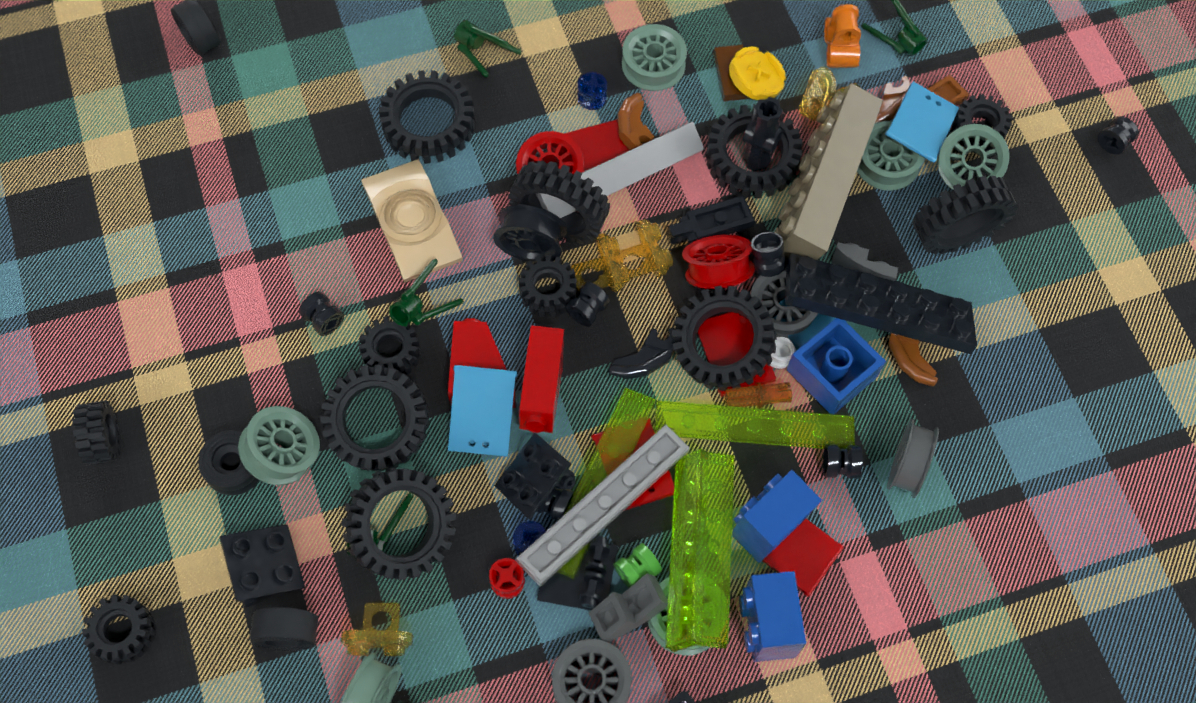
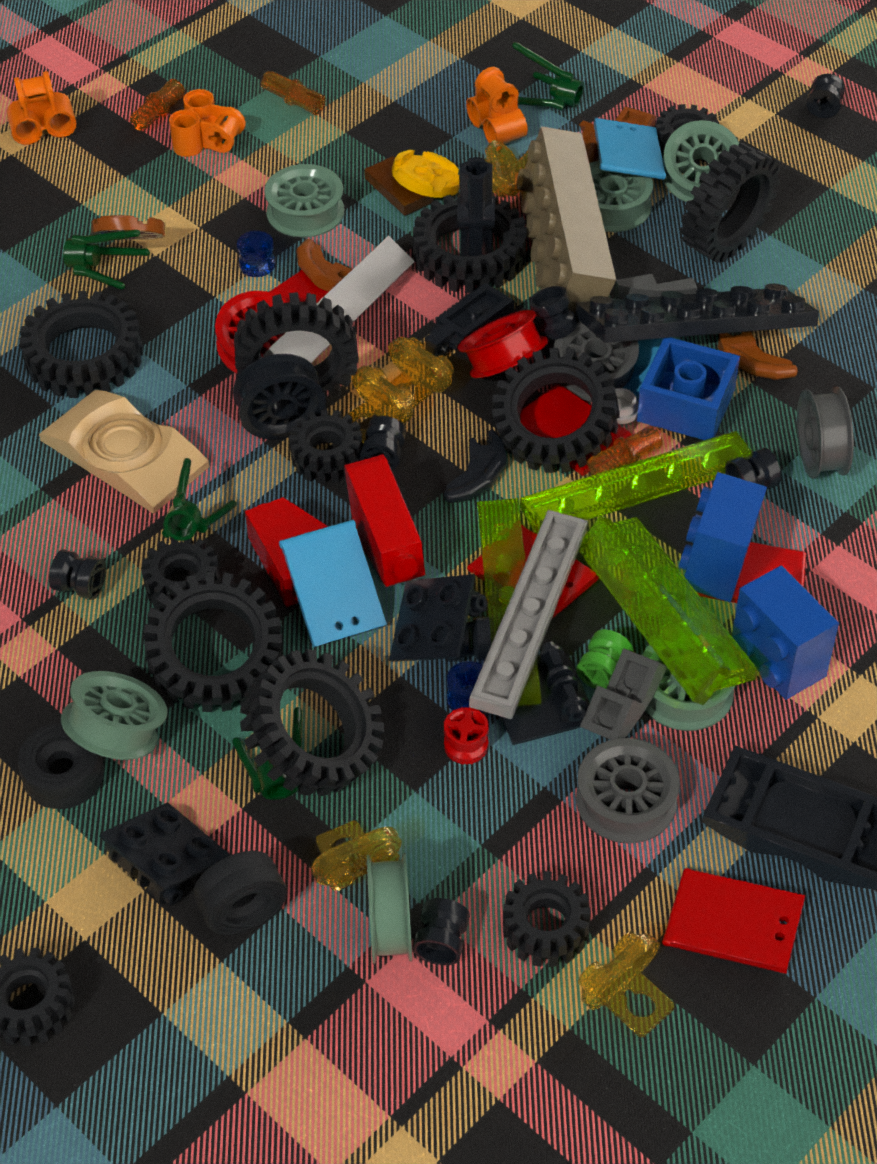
camera: 25 degrees left, 15 degrees down
(509, 31) = (152, 230): none -> dark orange tile

